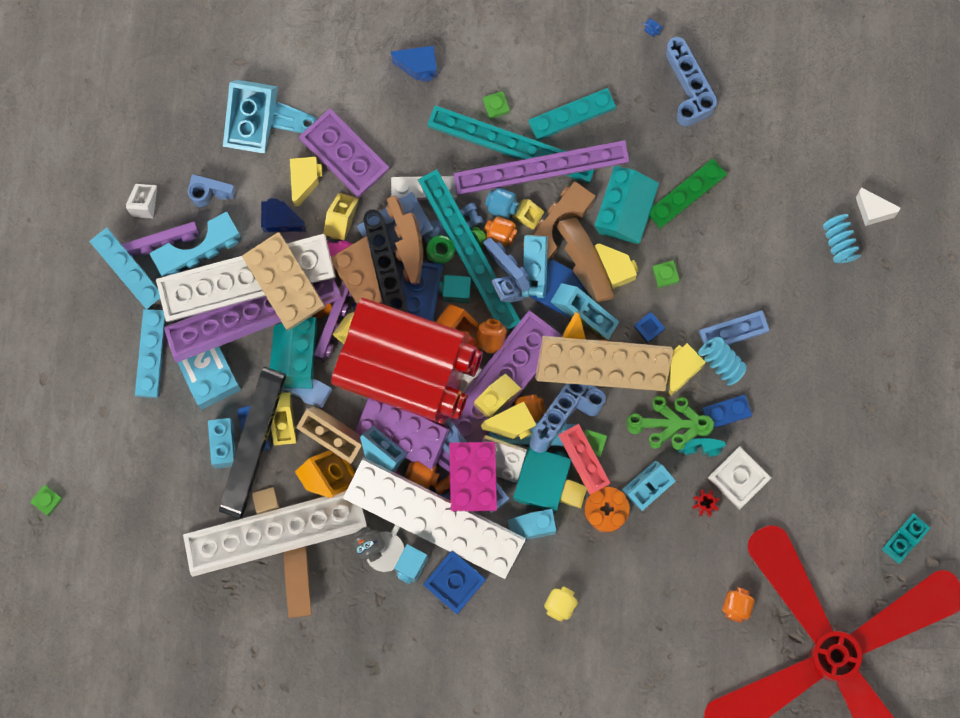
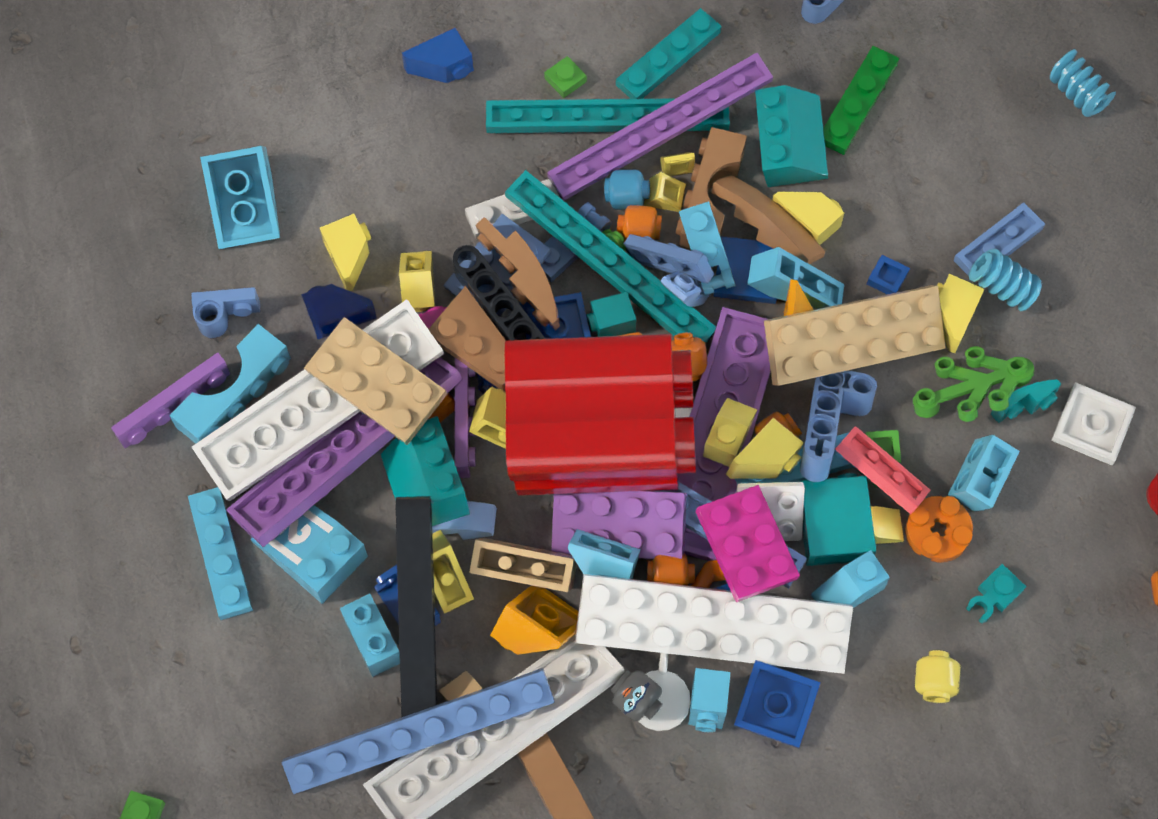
camera: 25 degrees left, 10 degrees down
(126, 267) = (143, 446): medium azure plate -> none
(142, 201) = (133, 356): white slope -> none
(228, 515) = (418, 731): none -> medium blue plate
(290, 118) = (302, 185): medium azure piece -> none
(344, 153) = (389, 200): medium lavender plate -> none
(440, 249) = (570, 273): green head -> none
(544, 195) = (678, 163): none -> light yellow slope
(627, 564) = (998, 590): none -> teal plate
(665, 274) = (877, 205): bright green plate -> none
(702, 509) = (1062, 464): red gear -> none
(728, 411) = (1040, 343): blue plate -> none
(875, 208) = (1101, 33): white slope -> none

